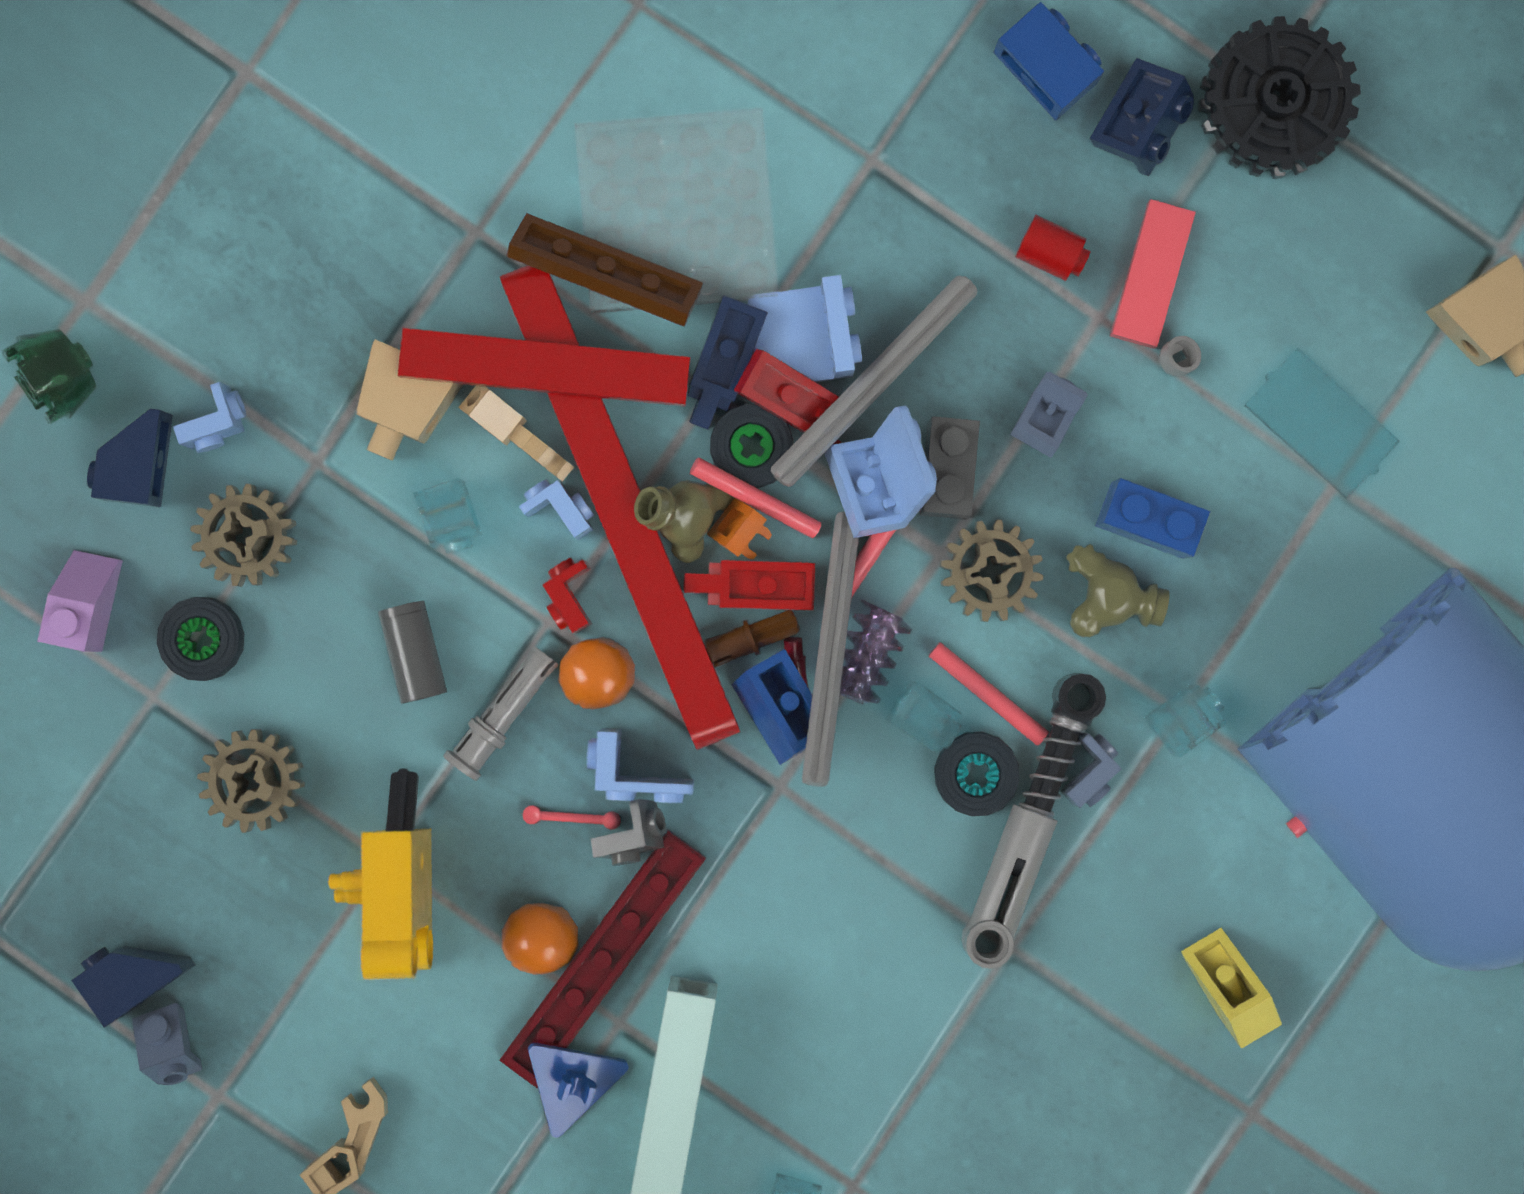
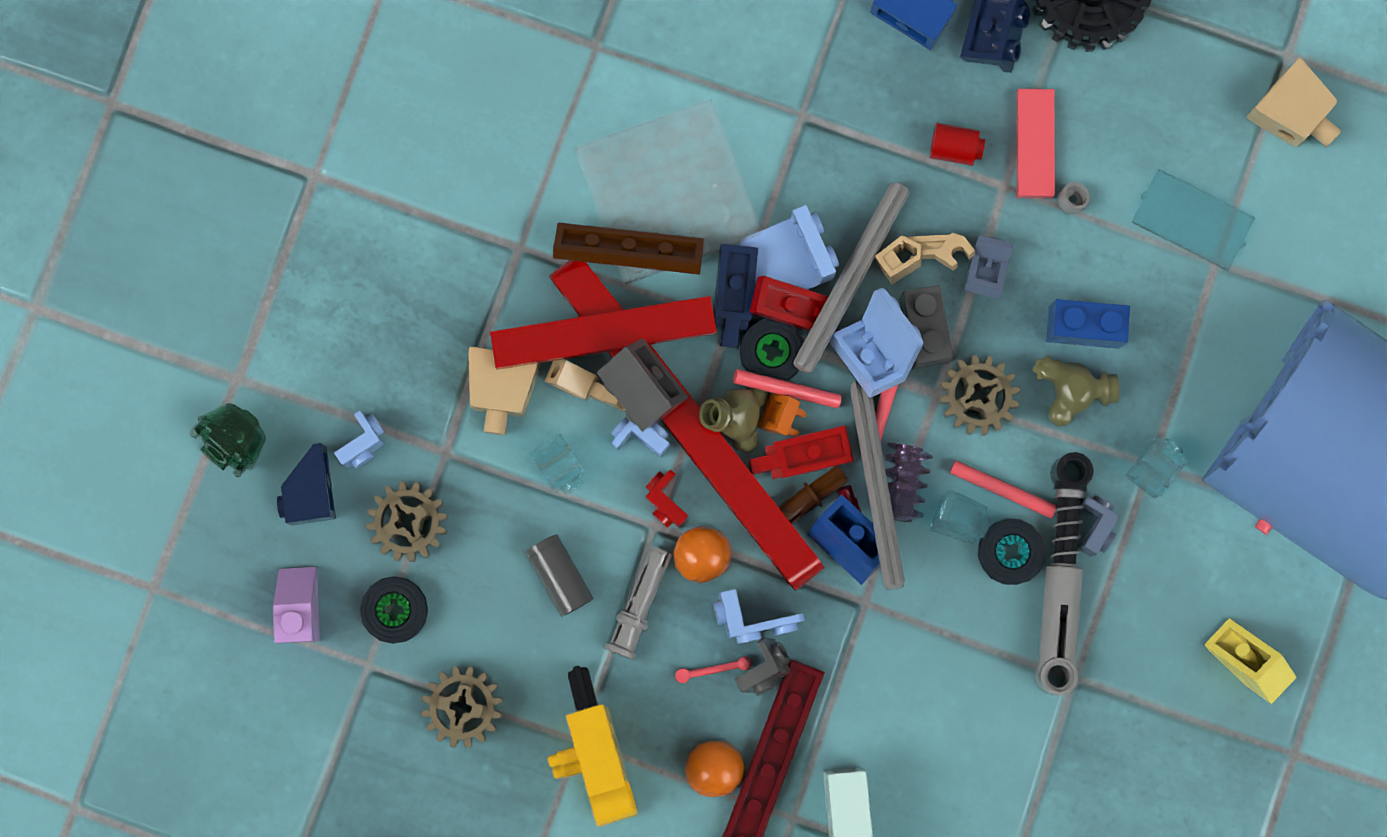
camera: 15 degrees left, 5 degrees down
(573, 446) = (642, 385): none -> dark grey brick
(976, 367) = (924, 247): none -> tan piece

